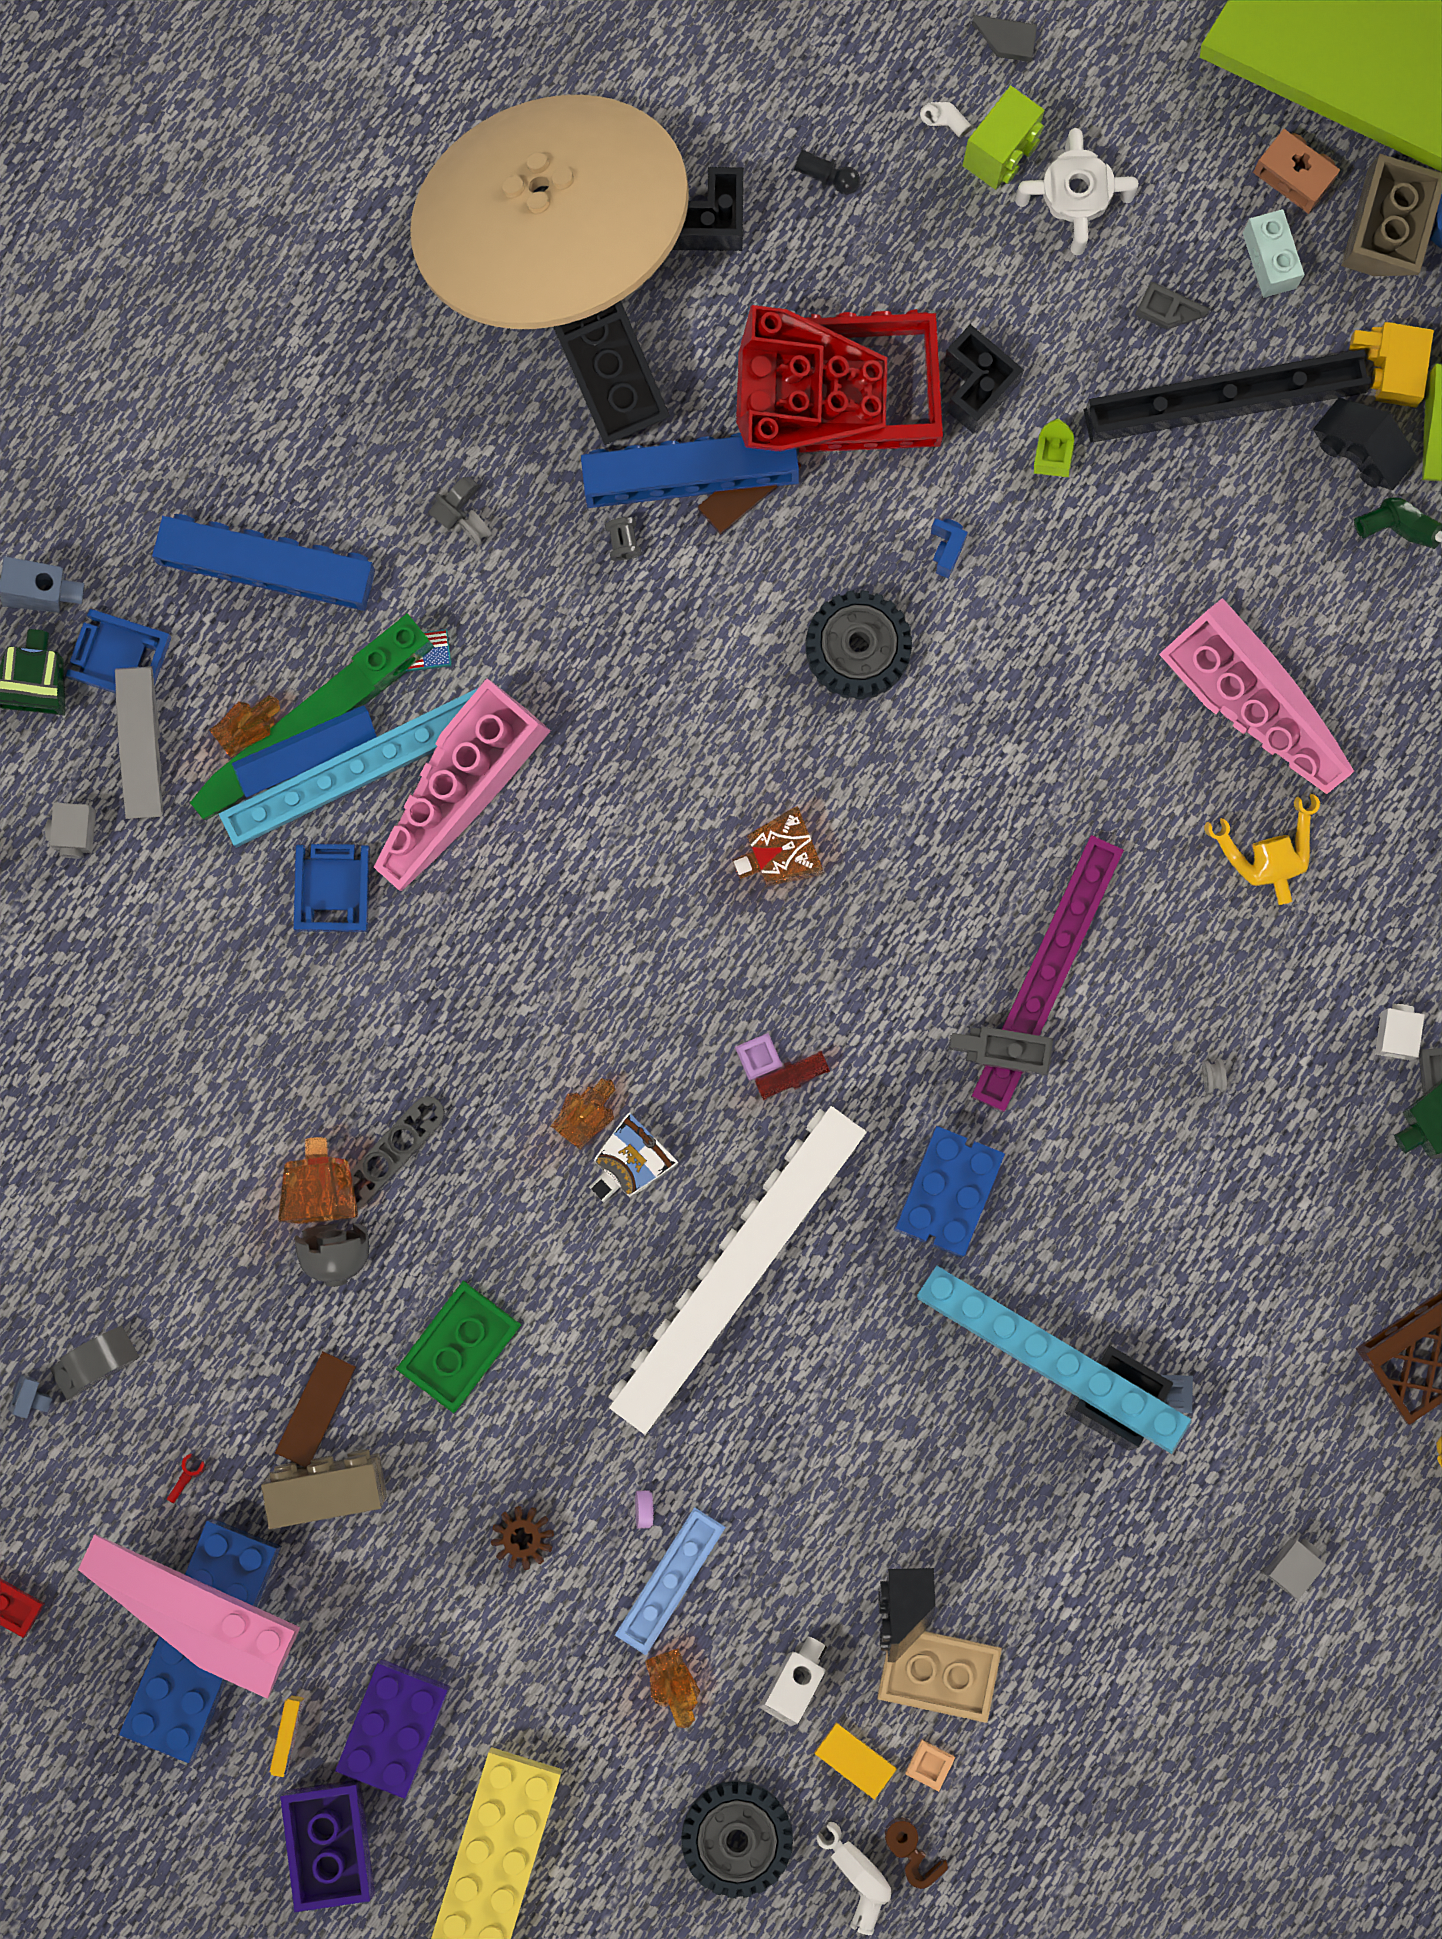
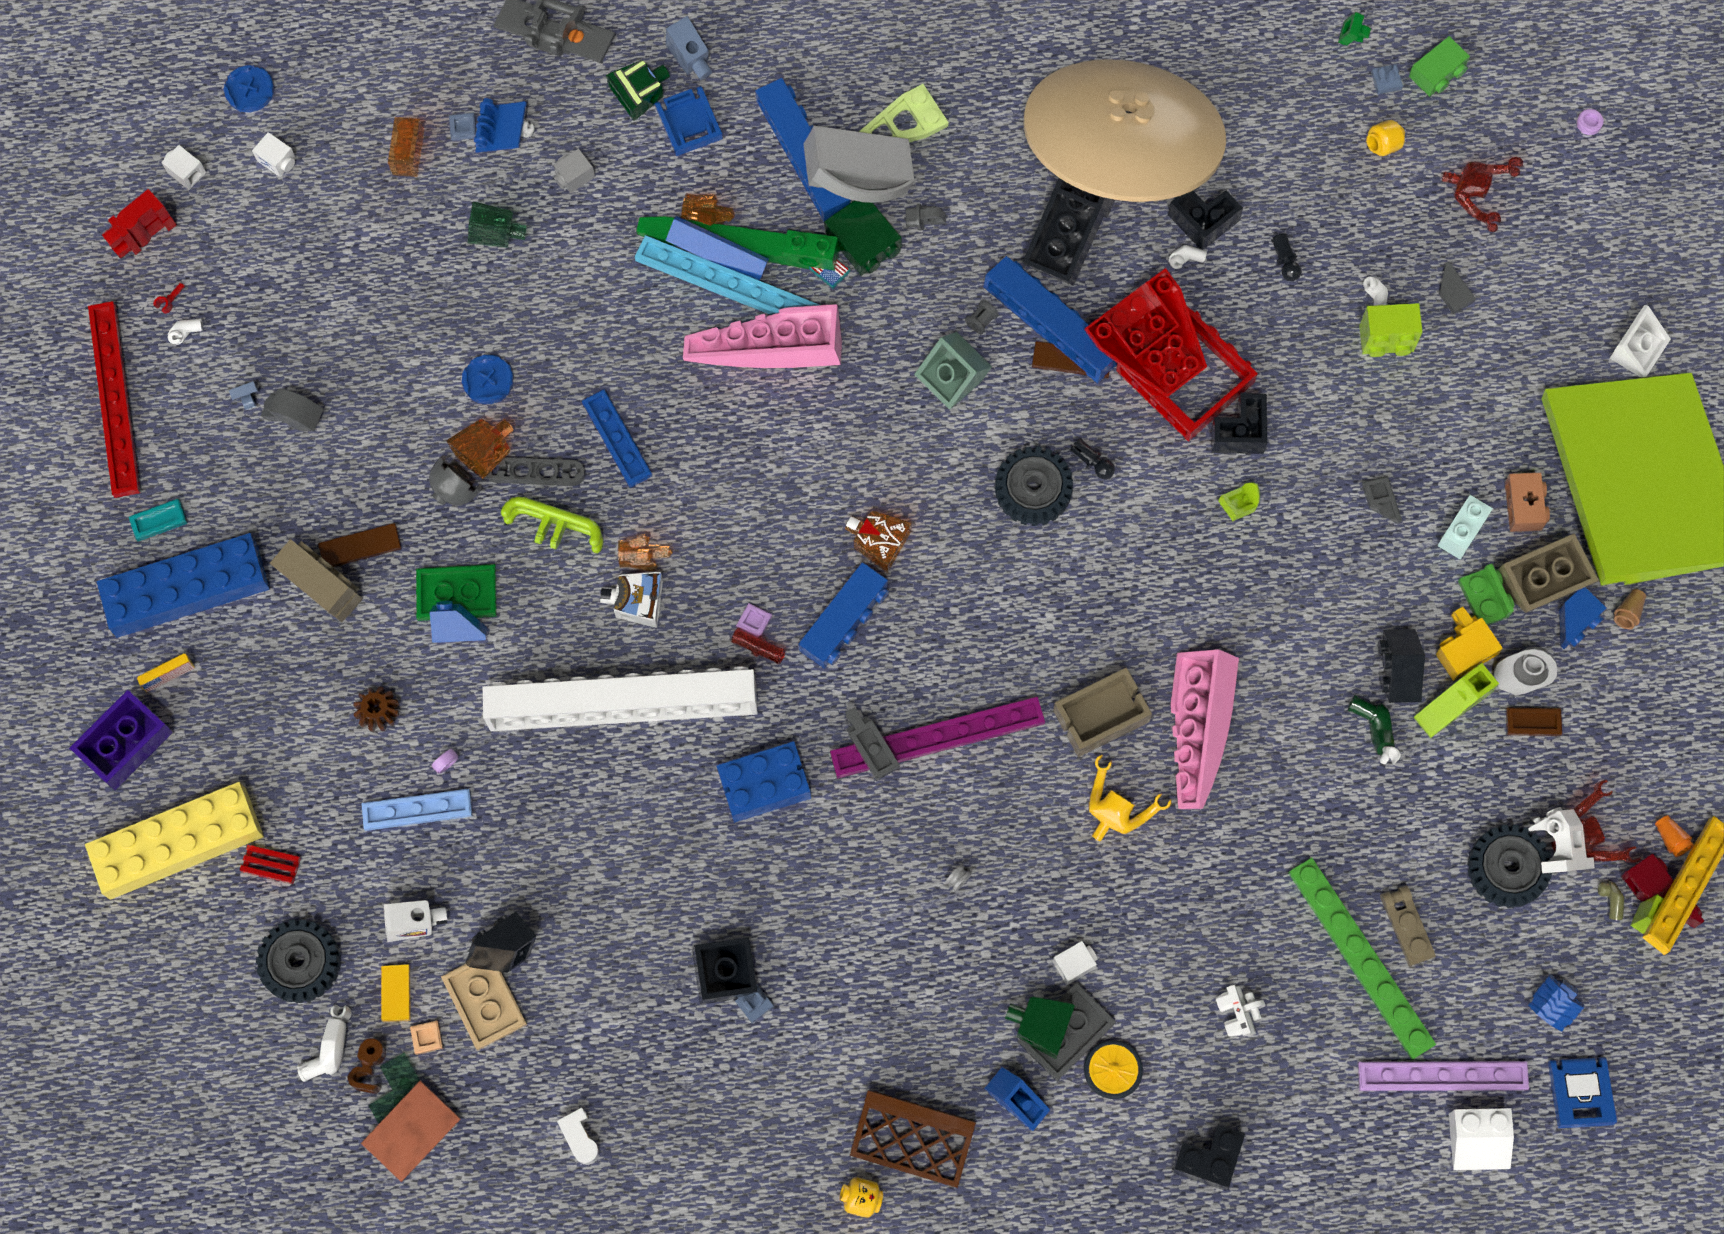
camera: 55 degrees right, 10 degrees down
(57, 981) = (493, 226): none -> clear green torso
(90, 1616) = (157, 520): none -> teal tile
(138, 742) = (648, 165): light grey slope -> none
(184, 1478) = (268, 509): red hand -> none
(193, 1617) = (191, 571): bright pink wedge -> none
(238, 1118) = (487, 379): none -> blue tile
(326, 398) = (922, 108): none -> yellowish green plate
(331, 882) = (658, 322): blue container -> none
(342, 519) = (858, 164): none -> light grey piece
(392, 1728) = (213, 724): dark purple brick -> none
(422, 582) = (864, 236): none -> dark green brick
(427, 1034) = (617, 438): none -> blue tile
(459, 1175) = (549, 515): none -> lime piece
(475, 528) = (918, 238): light grey bush -> none
(500, 1377) = (455, 624): none -> slope
(575, 1806) = (279, 855): none -> red tile
(657, 619) = (952, 369): none -> sand green slope
(673, 1686) = (358, 855): clear orange rock -> none
(732, 270) = (1184, 254): none -> white arm
(835, 959) = (843, 616): none -> blue brick
(899, 557) = (1103, 468): none -> black pin
(948, 553) = (1131, 492): blue bracket -> none
(974, 1832) = (401, 1079): none -> clear green tile
(1020, 1860) = (410, 1131): none -> tile
(1054, 1359) = (714, 913): medium azure plate -> none
(1077, 206) = (1396, 404): white plate -> none
(1165, 784) = (1102, 712): none -> dark tan piece
(1181, 1692) = (582, 1147): none -> white leg
(1226, 396) = (1360, 569): black tile -> none
(1295, 1567) = (709, 1152): light grey brick -> none
(1359, 295) = (1486, 595): none -> bright green bracket

